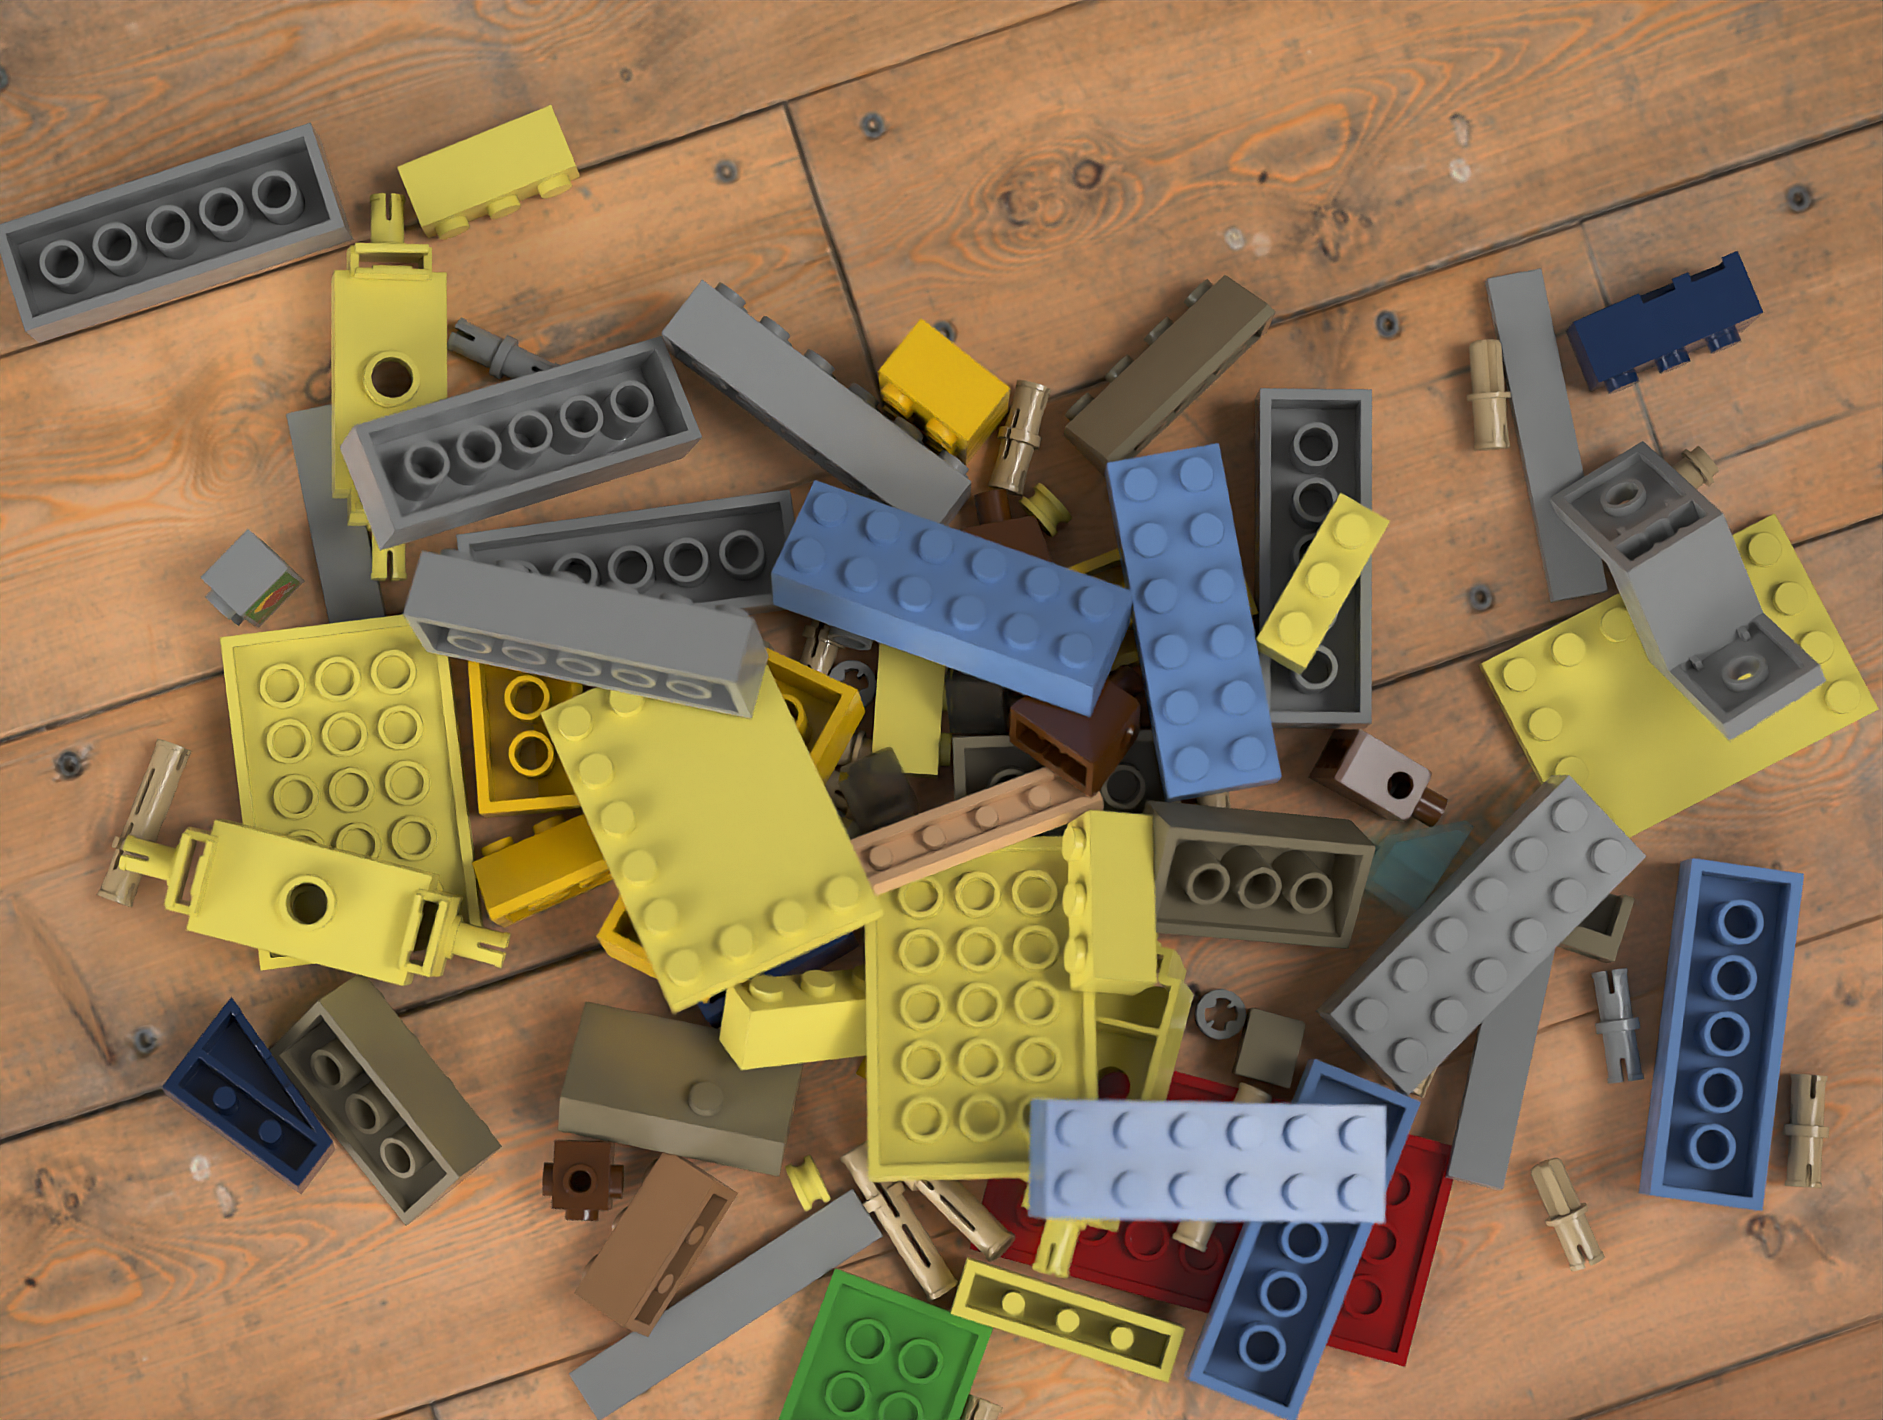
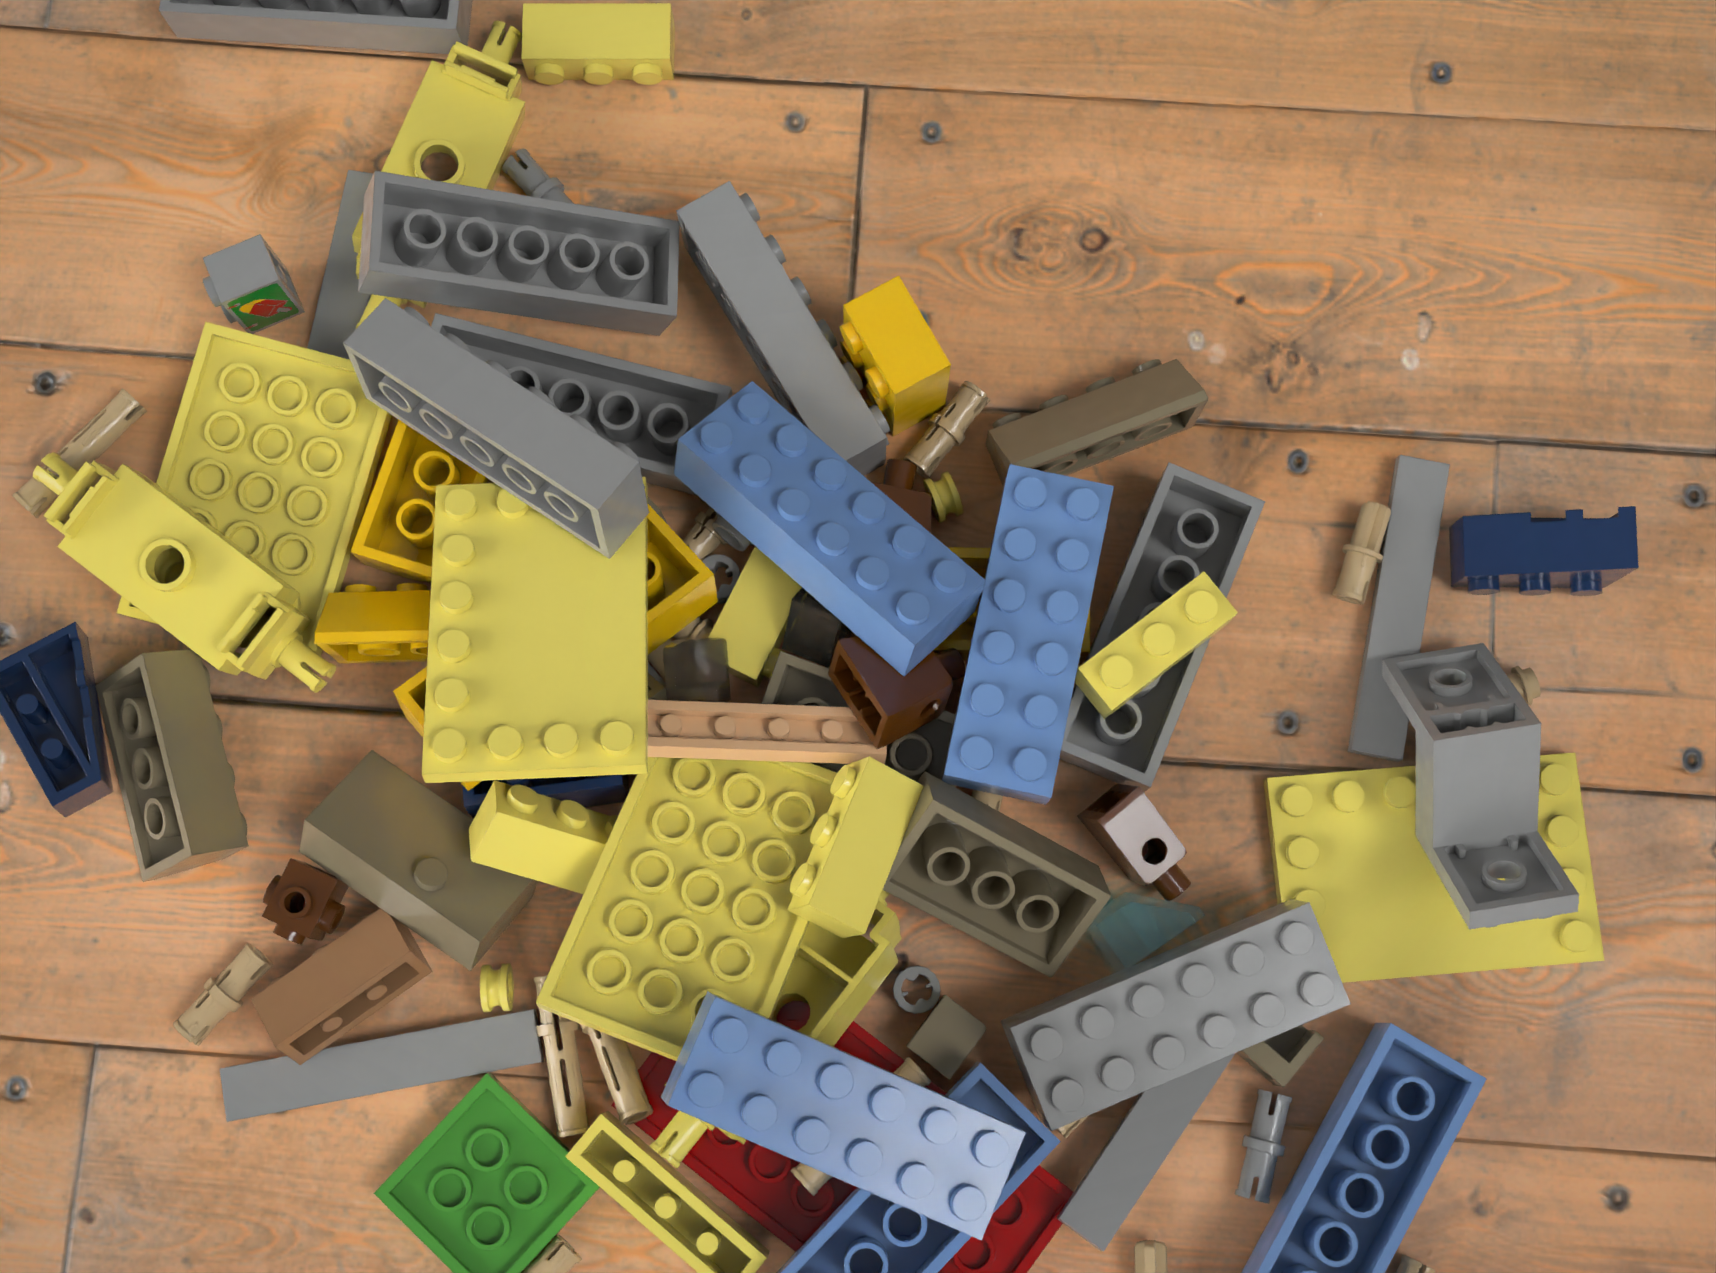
camera: 25 degrees right, 5 degrees down
(538, 1301) = (222, 994): none -> tan pin

